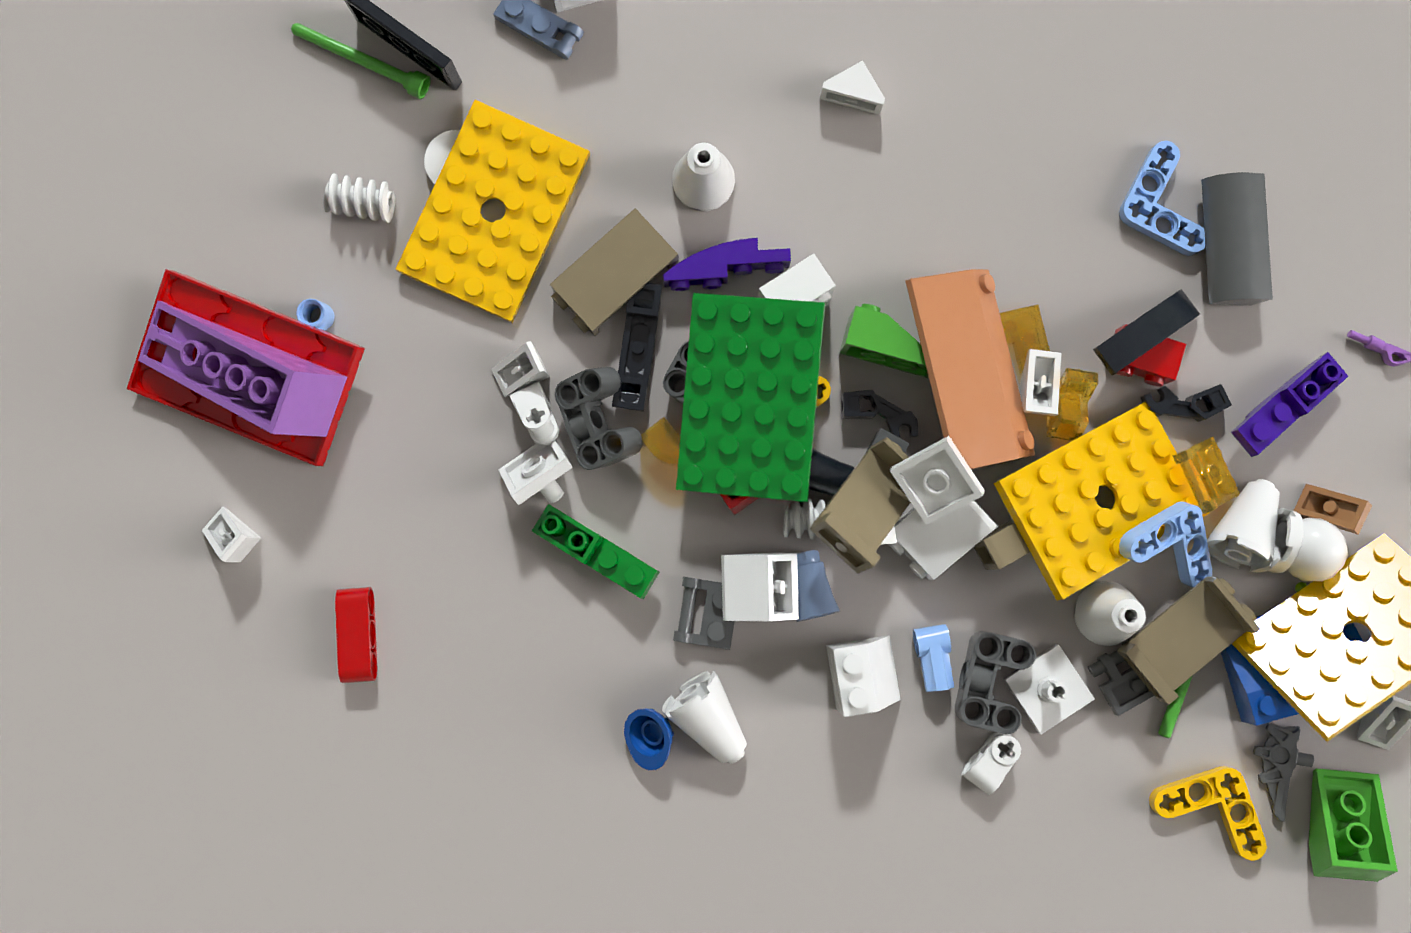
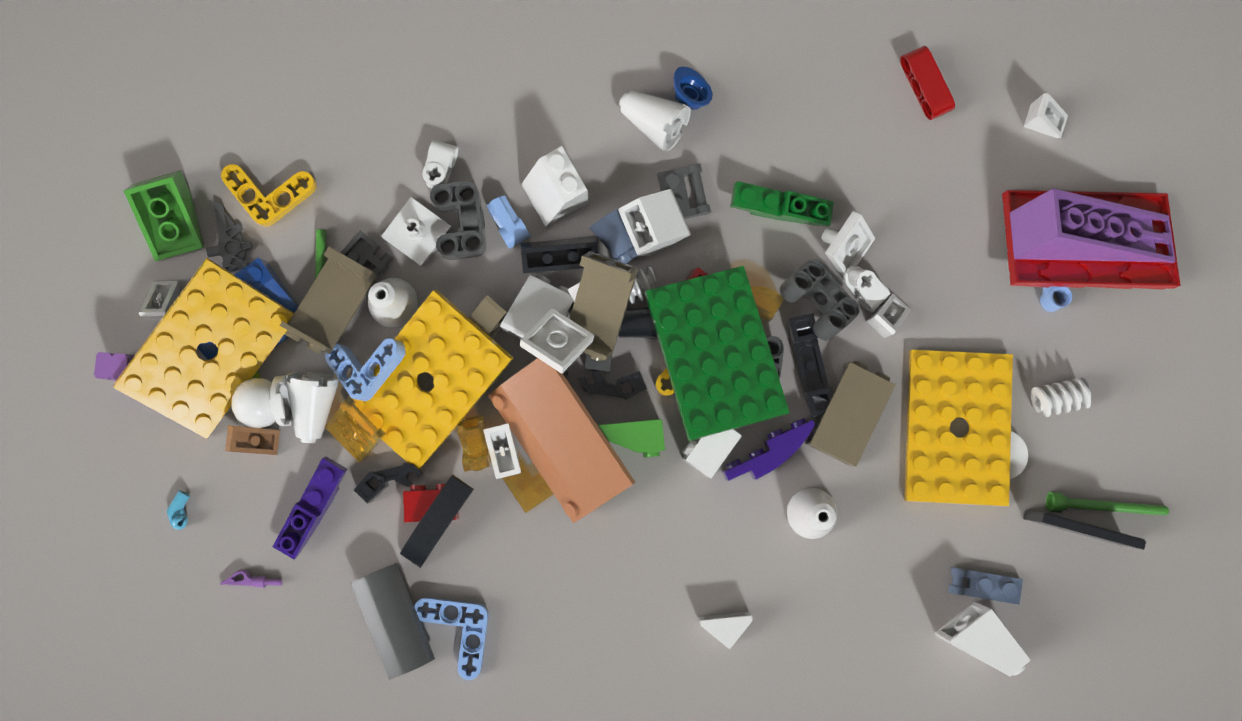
camera: 155 degrees right, 0 degrees up
(890, 593) = (556, 254): none -> black brick

